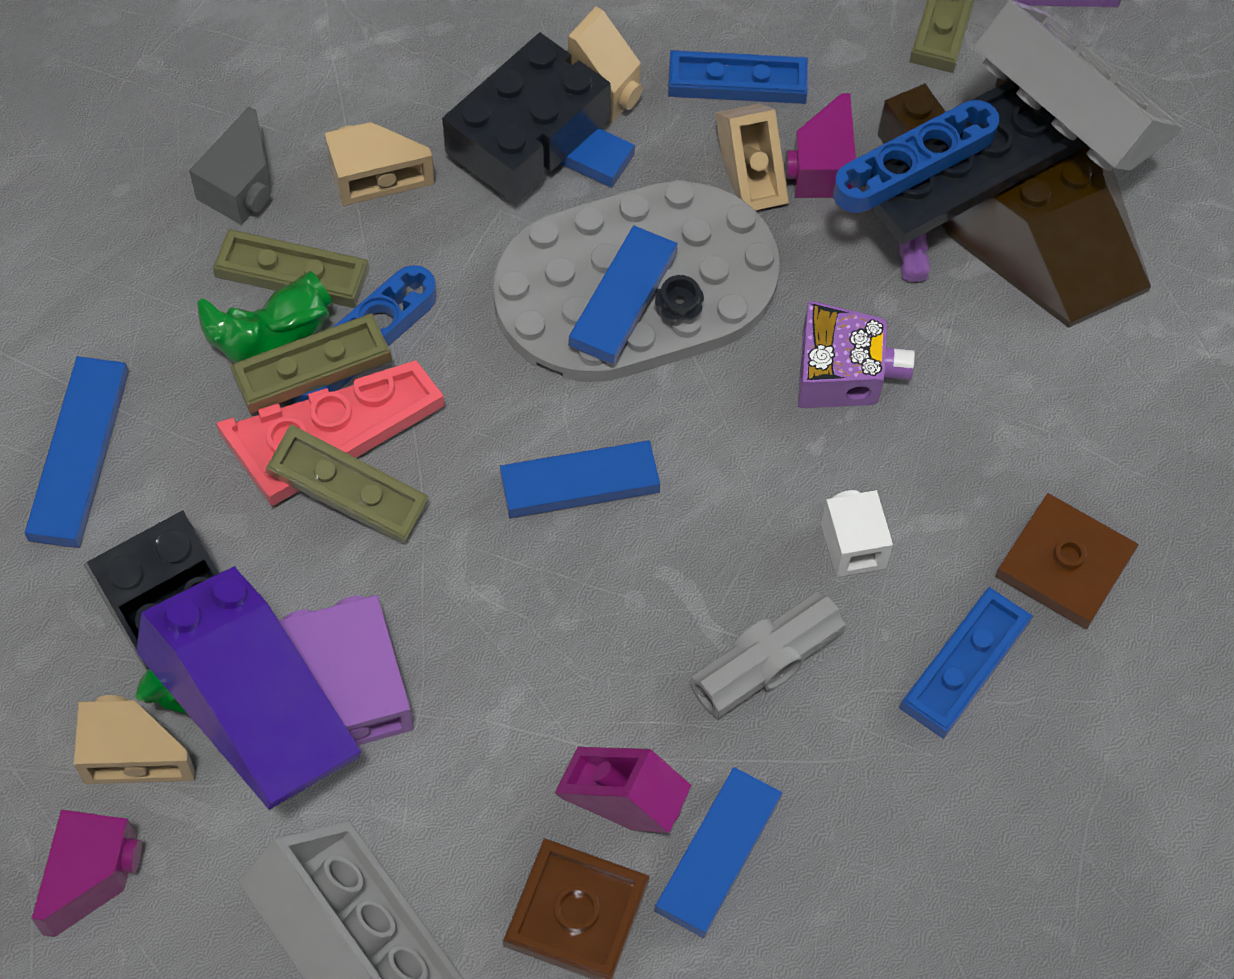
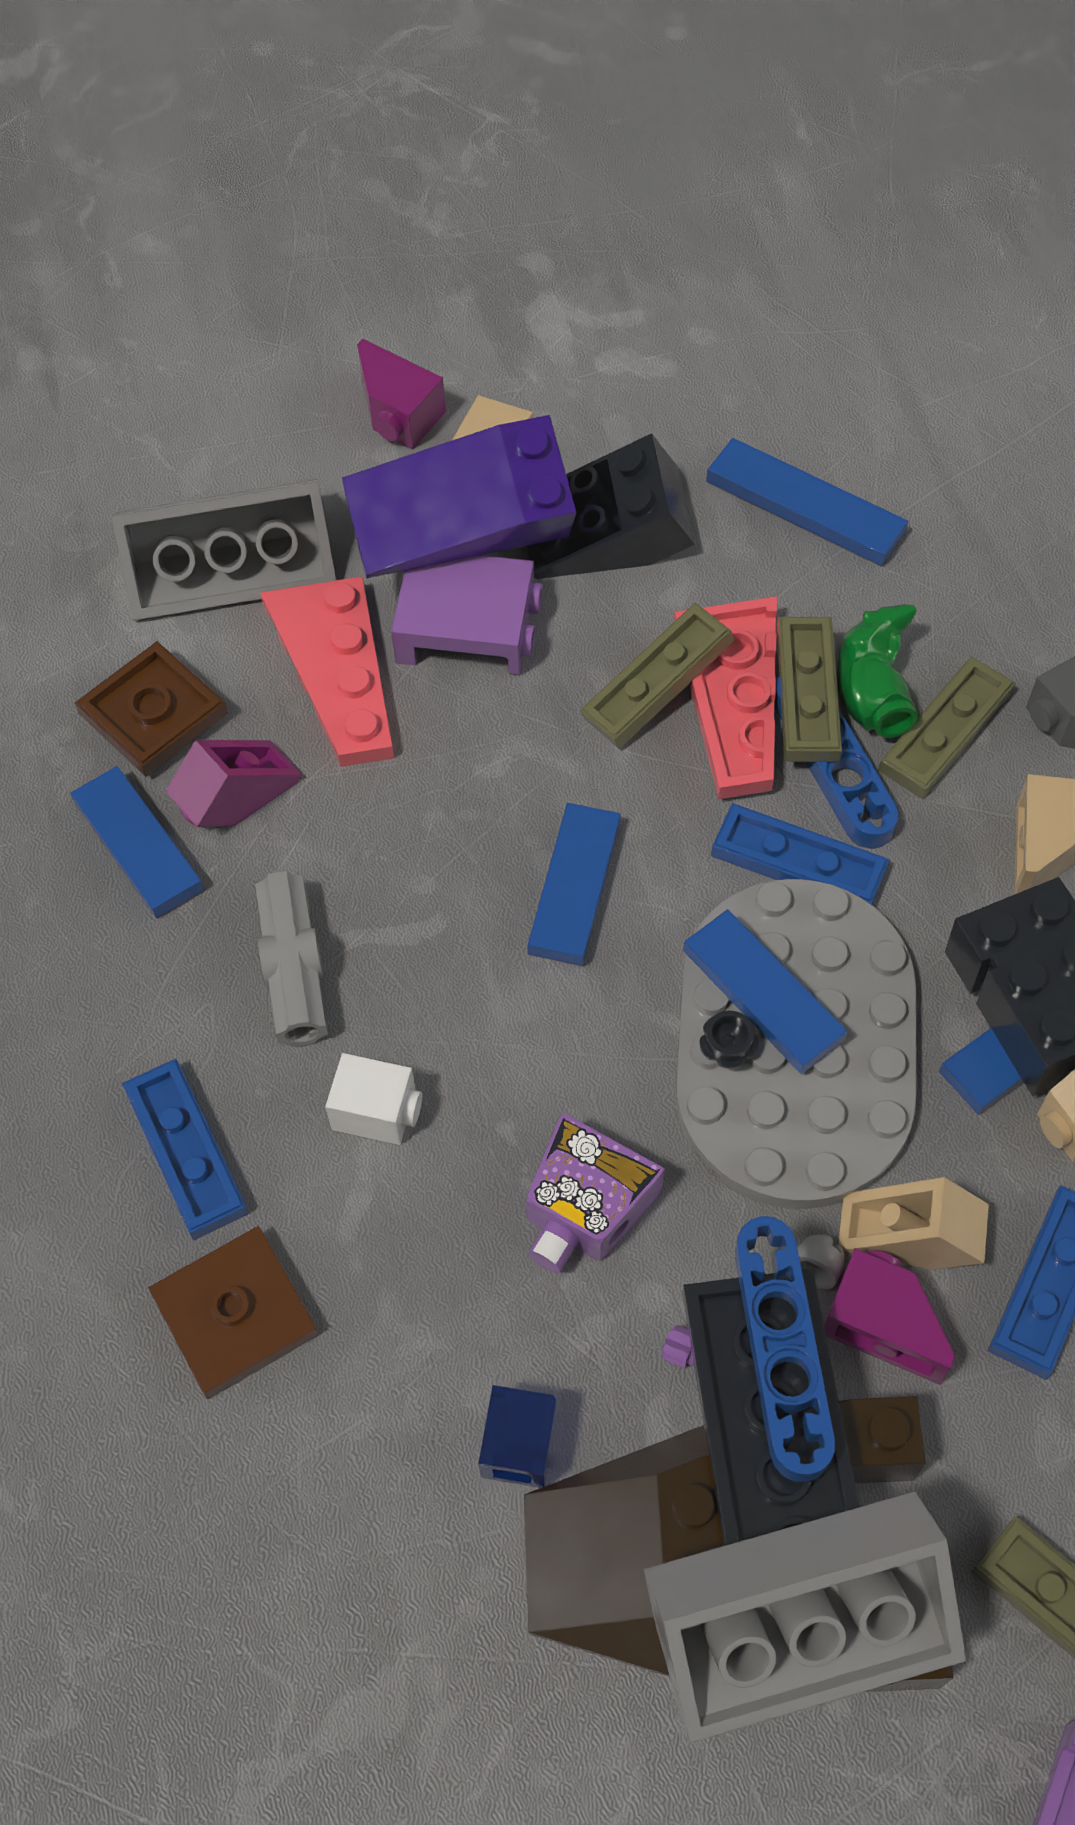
camera: 120 degrees right, 0 degrees up
(427, 785) = (335, 659): none -> coral wing
(472, 332) = (792, 852): none -> blue tile
(804, 205) = (824, 1257): none -> light grey hinge
(1046, 330) = (517, 1437): none -> clear blue panel

